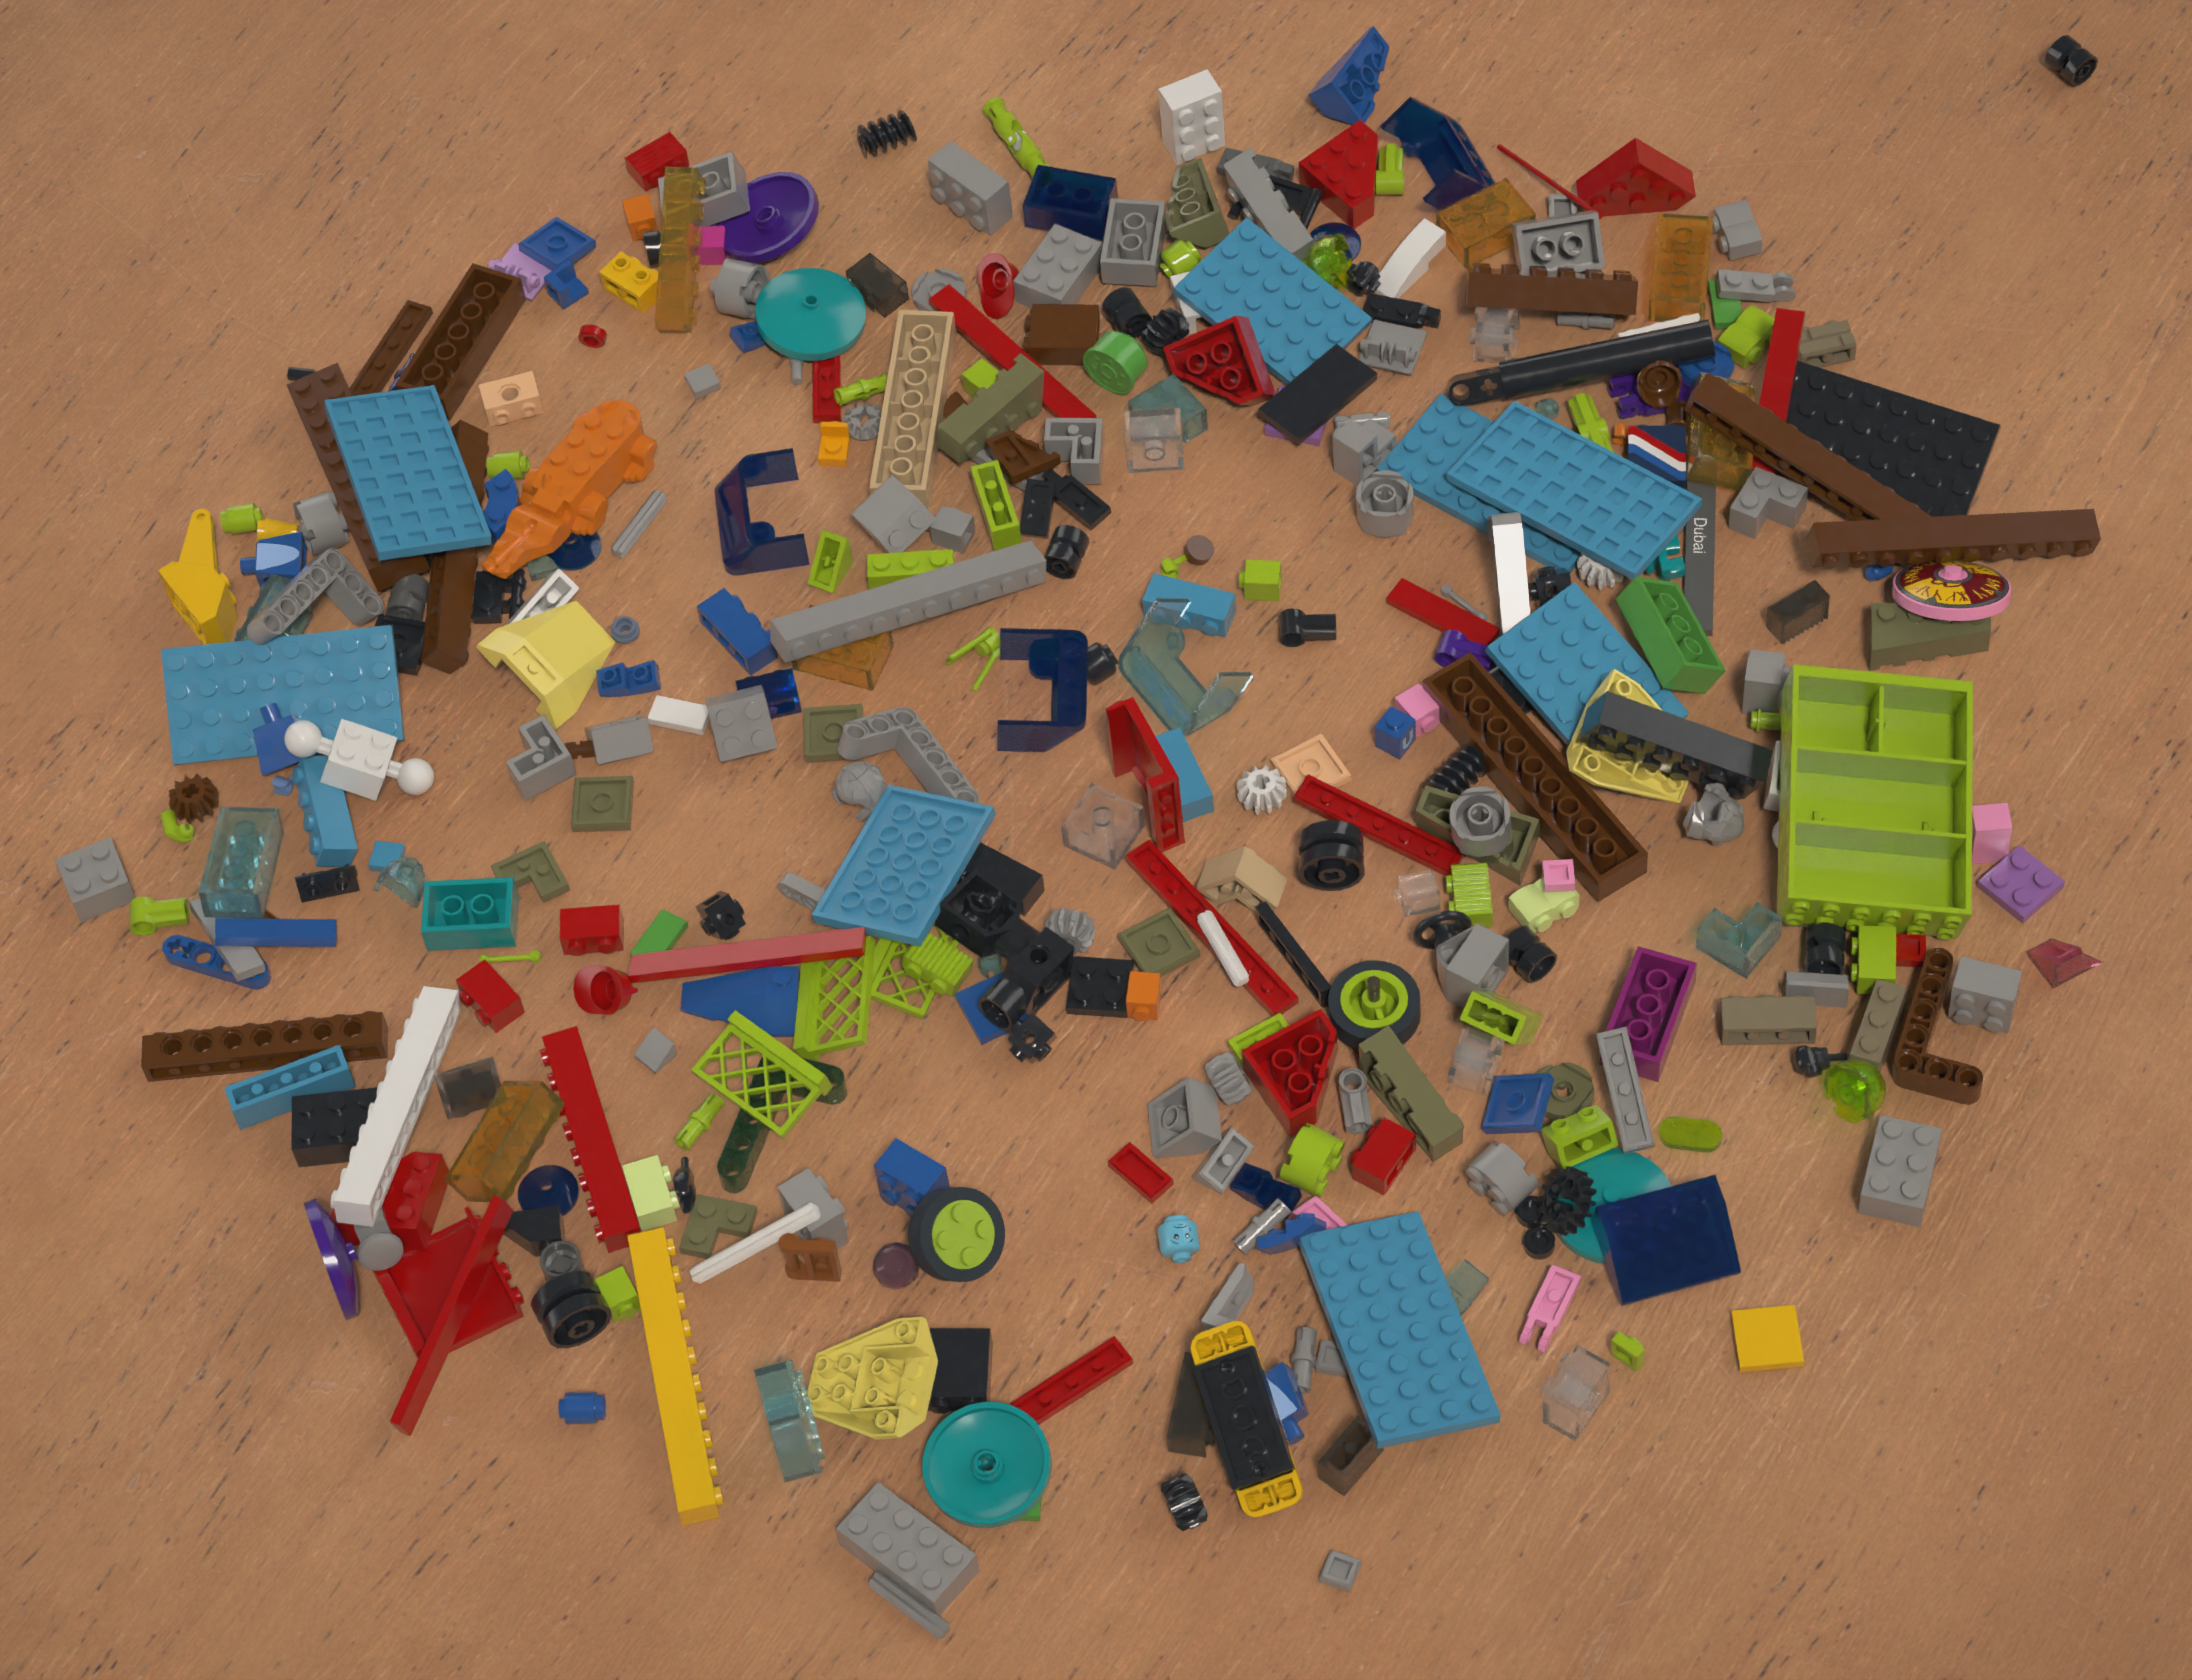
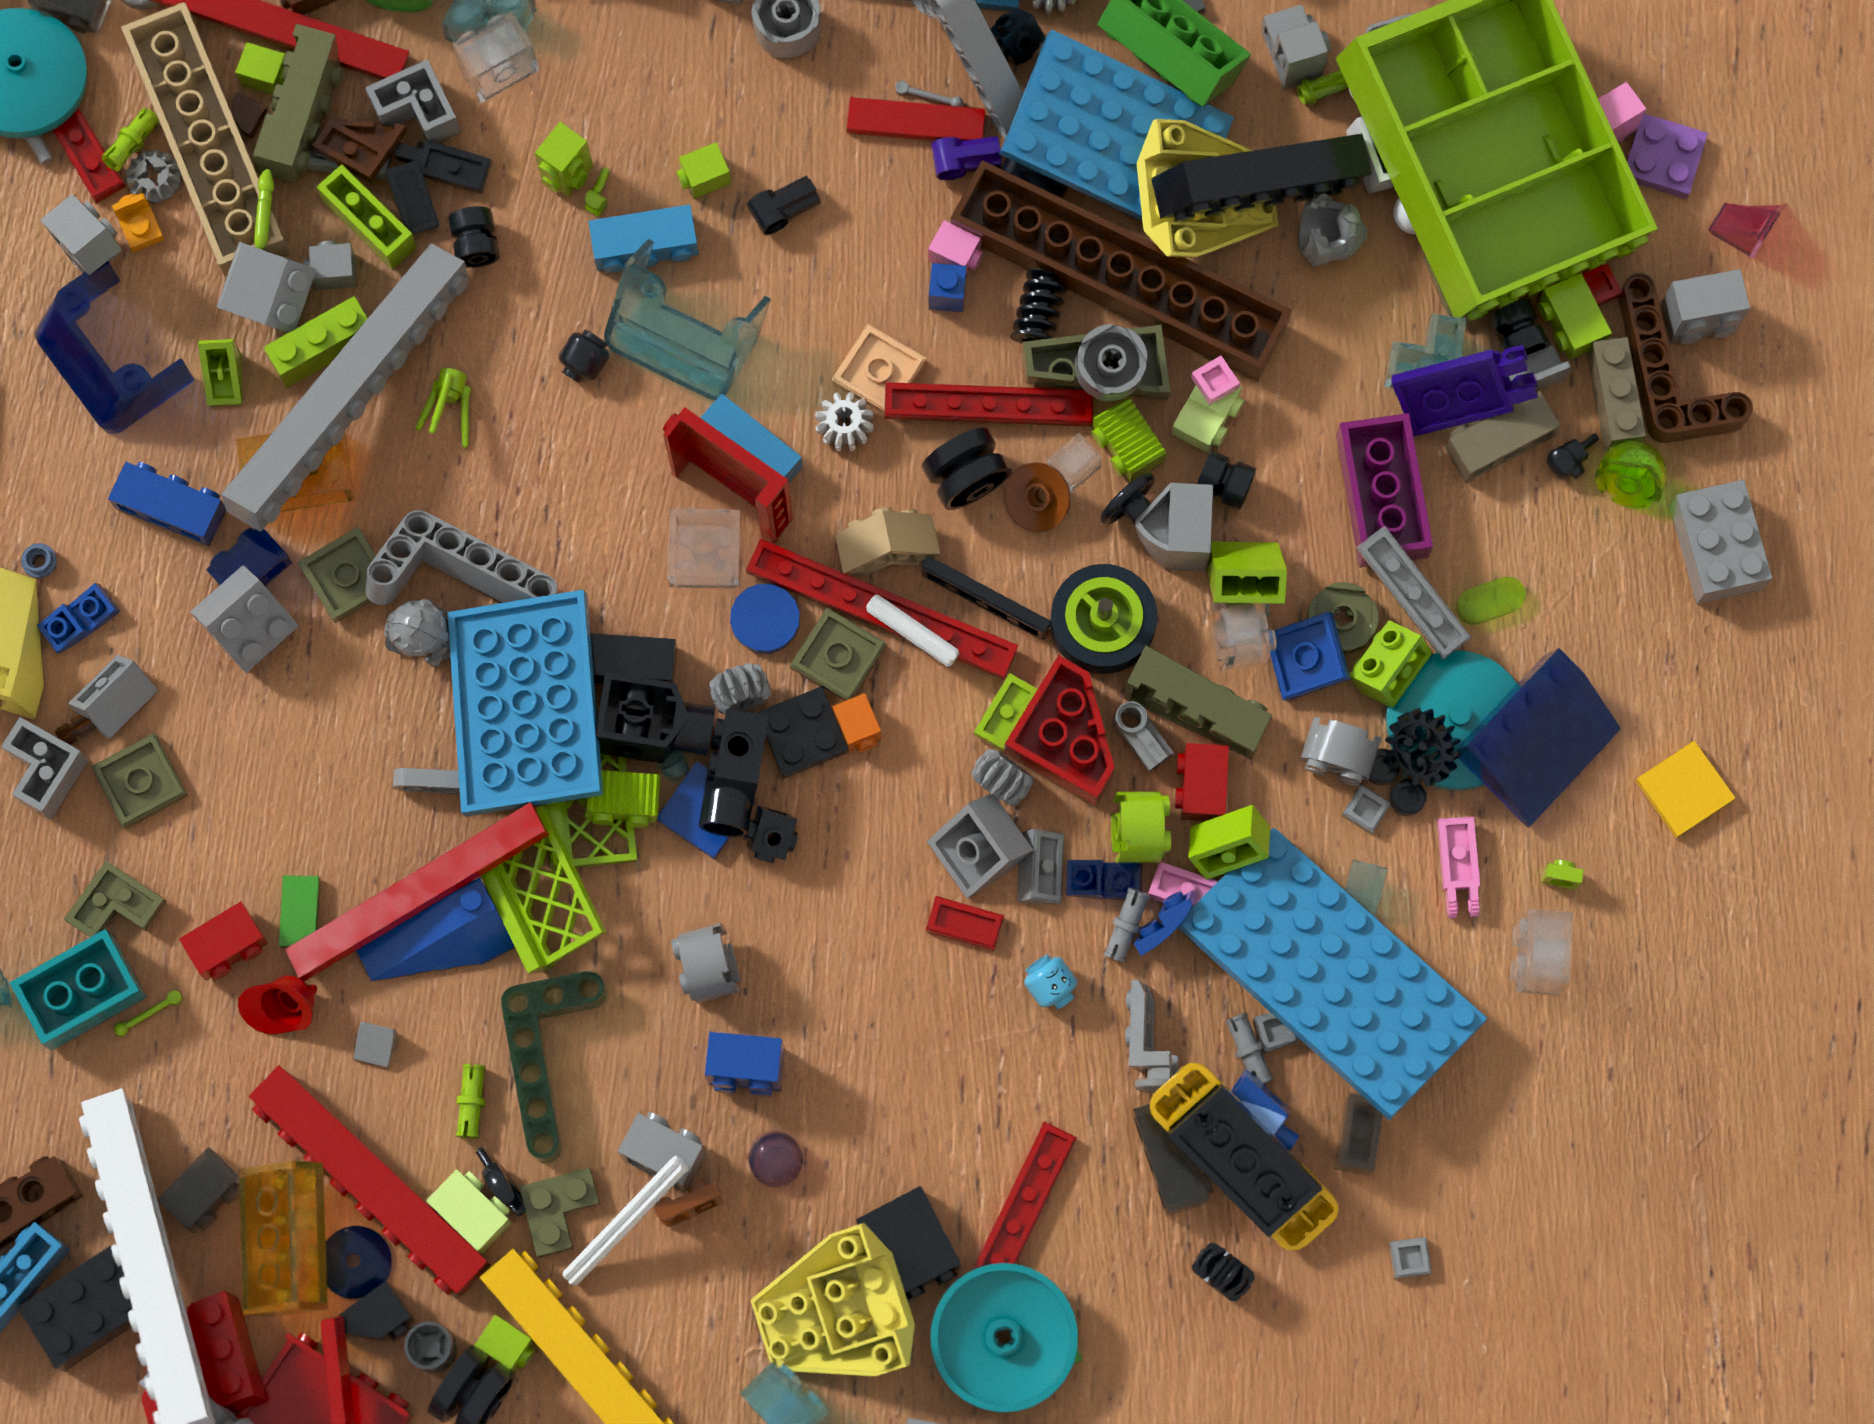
camera: 35 degrees left, 20 degrees up
(489, 996) = (156, 1073): red brick -> none
(679, 715) = (161, 633): white tile -> none
(721, 916) = (355, 855): black brick -> none
(777, 1054) = (523, 995): lime fence -> none
(787, 427) = (81, 234): none -> light grey brick
(923, 463) = (263, 213): none -> lime piece
(927, 1103) = (707, 963): none -> light grey brick
(956, 1234) = (828, 1101): wheel -> none
(1055, 657) = (557, 373): clear blue windscreen -> none
(1120, 897) = (765, 618): none -> blue tile
(1160, 526) = (563, 160): none -> lime brick
(1198, 550) = (614, 164): reddish brown tile -> none
(1374, 1199) = (1229, 842): none -> lime brick
(1376, 902) = (1024, 501): none -> dark orange dish
(1501, 1236) = (1366, 809): none -> light grey tile
(1748, 964) = (1464, 389): none -> dark purple tile

